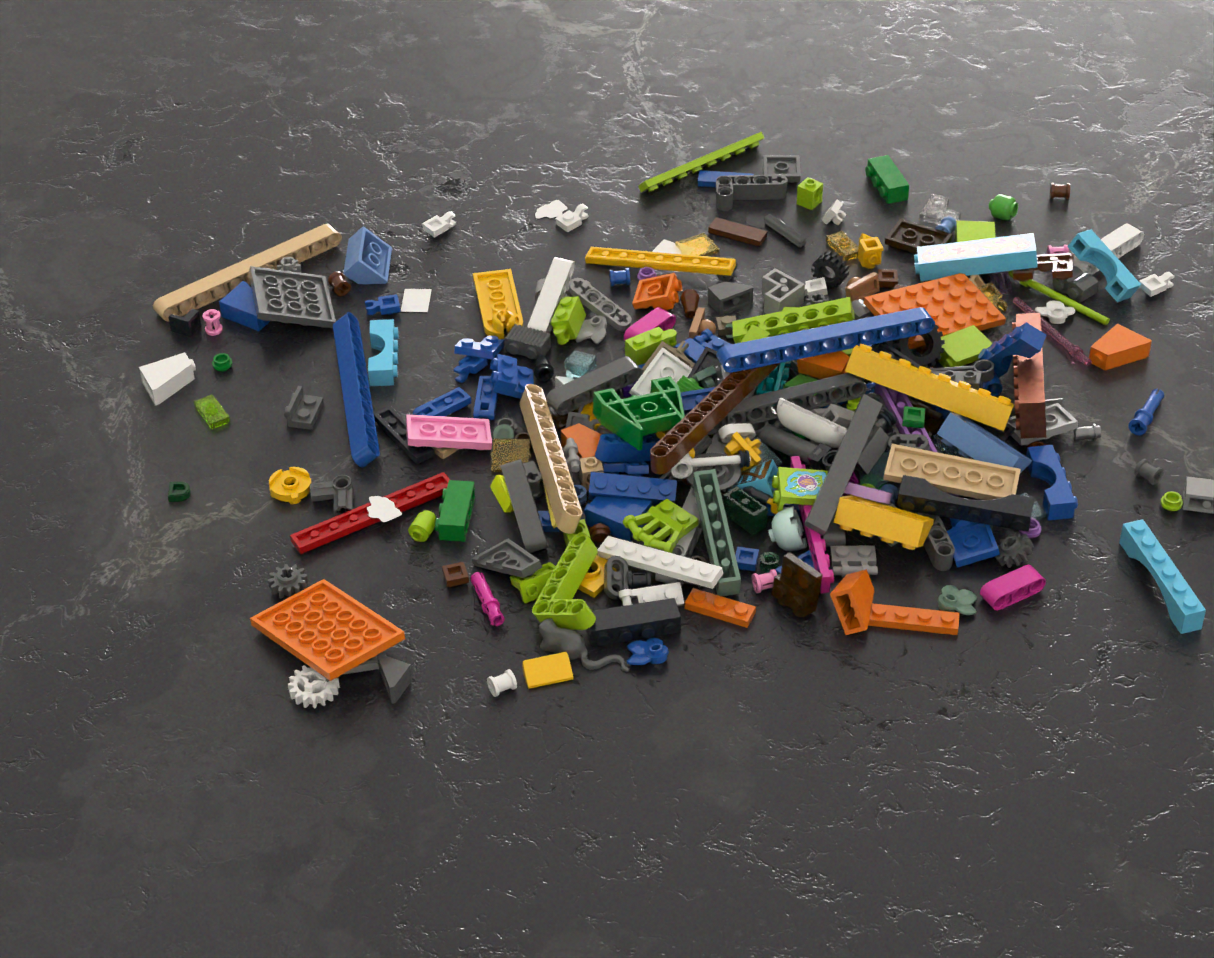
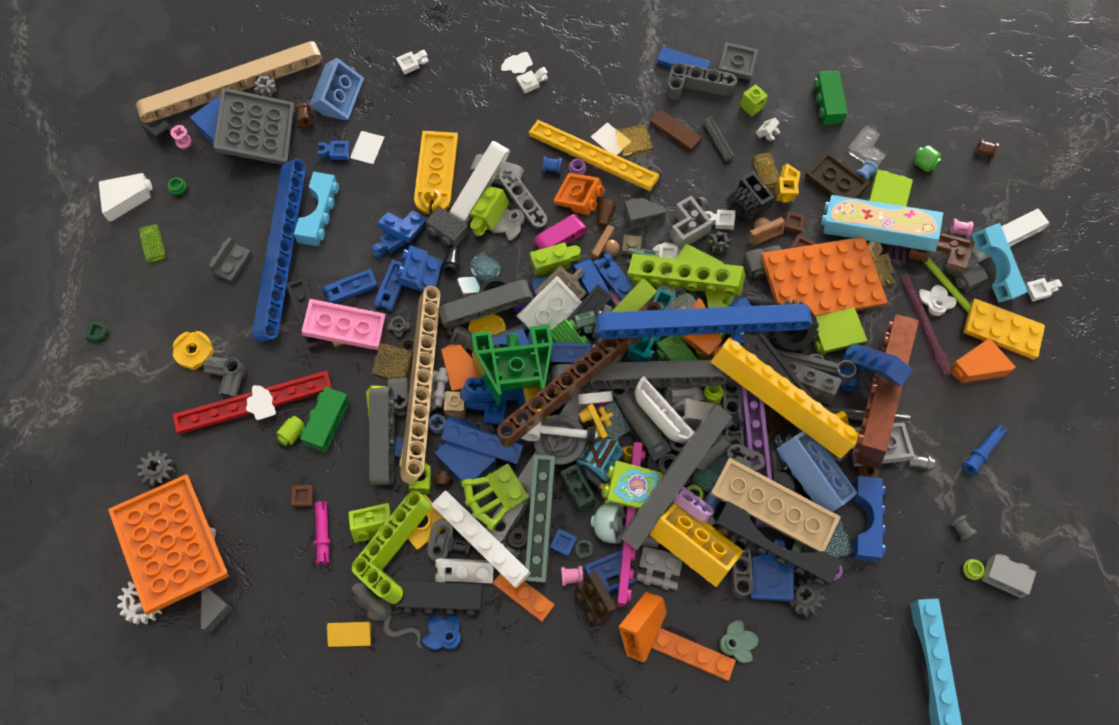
camera: 10 degrees right, 25 degrees up
(502, 682) = (304, 640): white bush -> none
(503, 432) = (393, 335): sand green tile -> none
(508, 559) = (352, 494): dark grey wing -> none
(696, 165) = (674, 36): lime plate -> none
(852, 258) = (758, 188): none -> pearl dark grey brick
(913, 417) = (760, 424): green tile -> none
(1012, 587) = (793, 642): dark pink beam -> none
(1143, 320) = (1004, 328): none -> yellow plate

